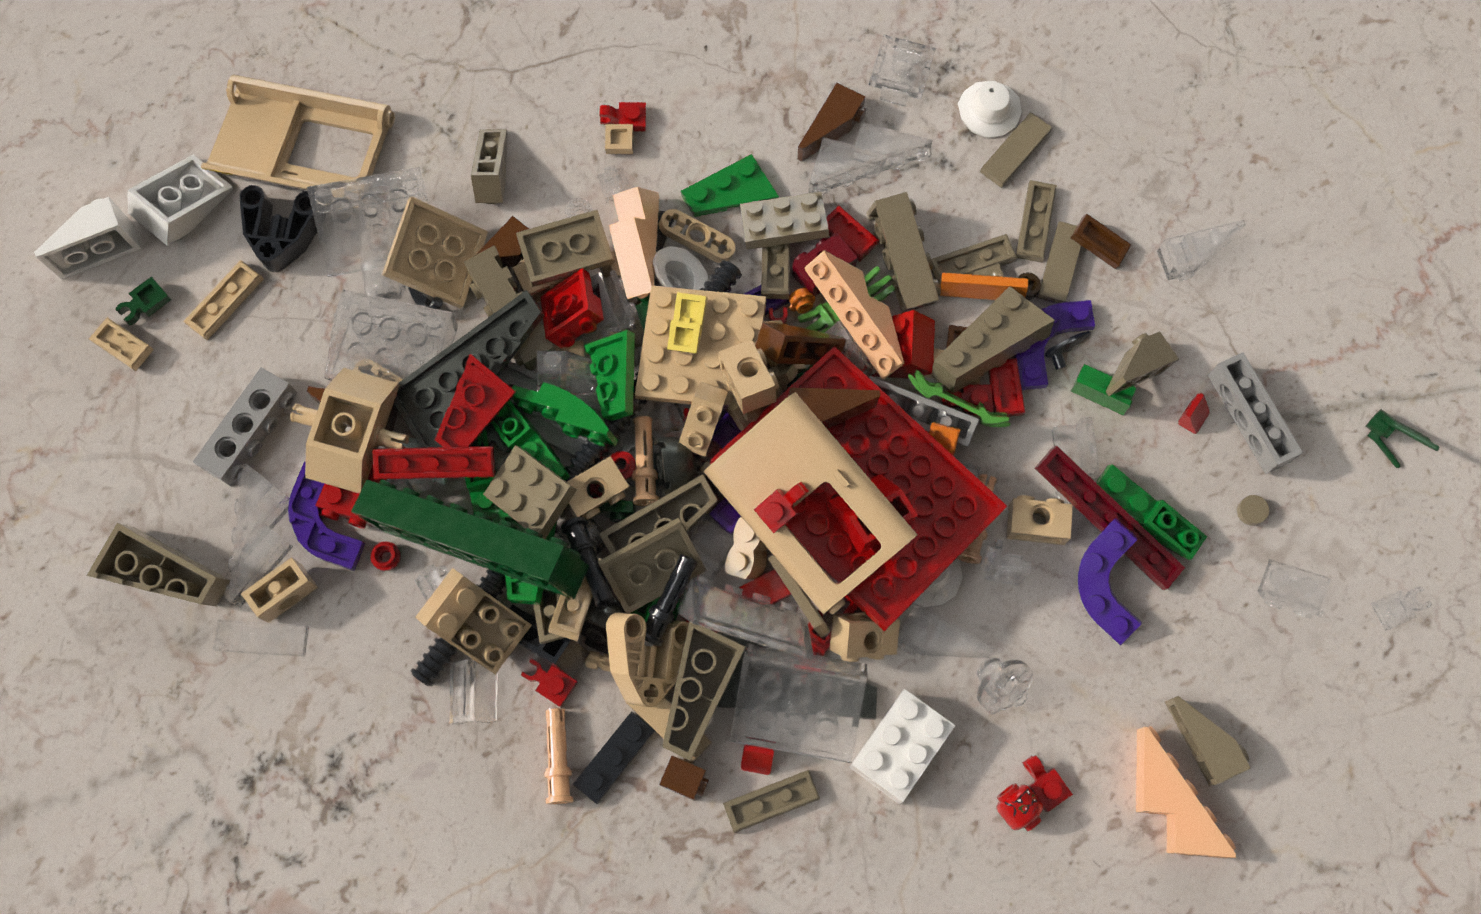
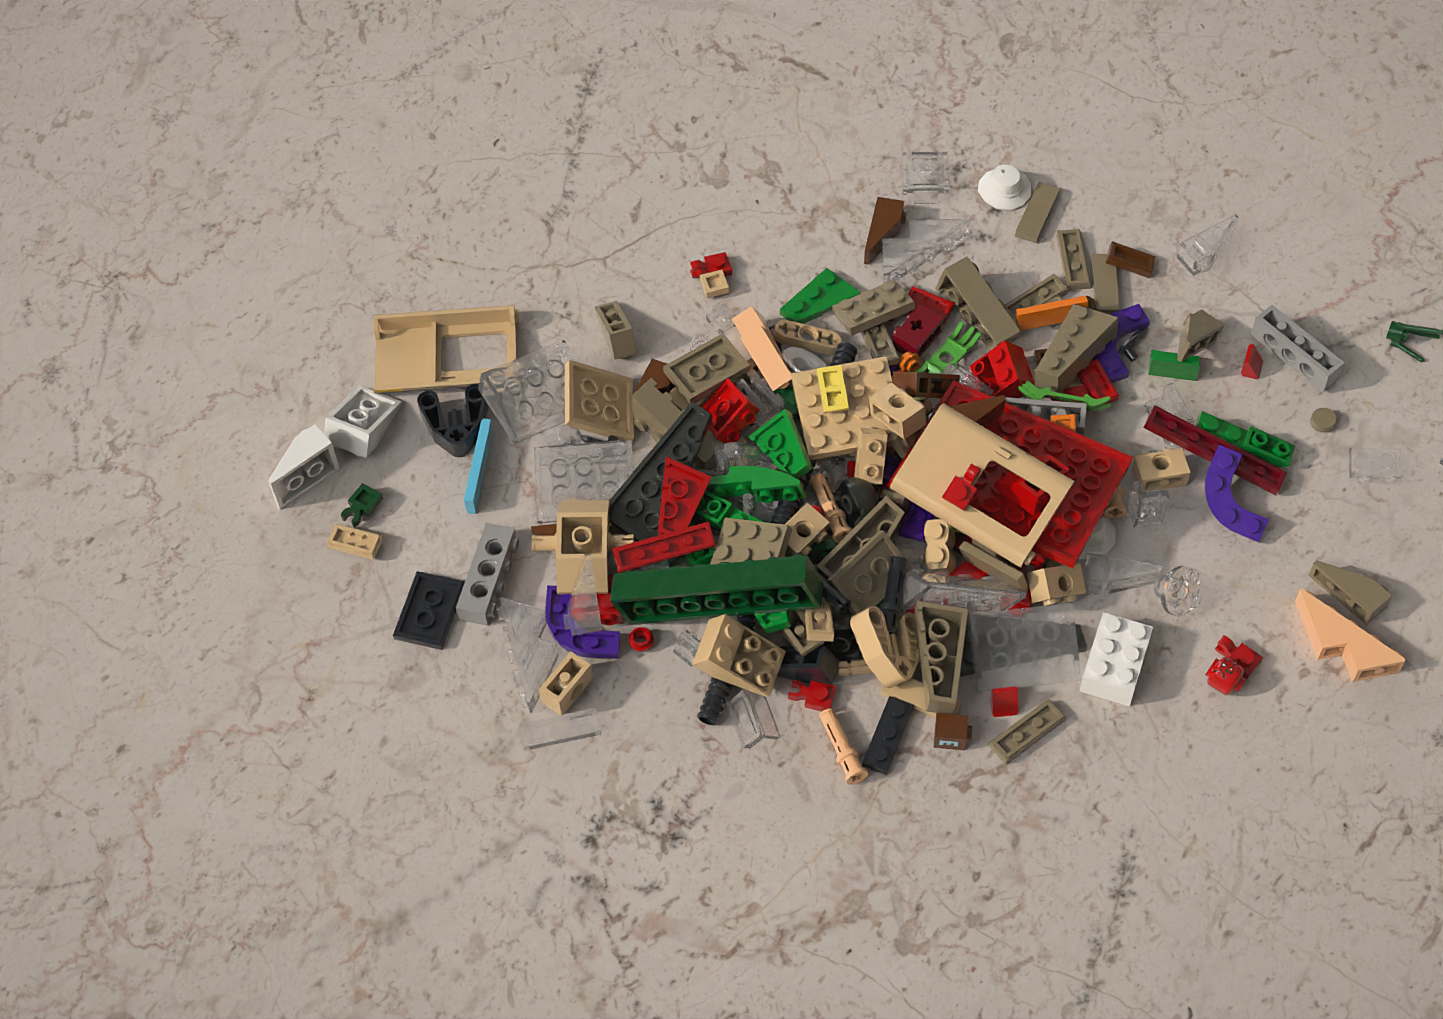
camera: 15 degrees left, 15 degrees down
(152, 566) = (453, 696): dark tan wedge -> none
(168, 451) = (428, 610): none -> black tile
(223, 300) = (427, 487): tan tile -> none
(283, 291) = (478, 466): none -> medium azure tile
(324, 508) = (583, 605): none -> clear slope
(551, 433) = (749, 503): none -> clear bar
(862, 315) = (961, 353): light nougat slope -> none

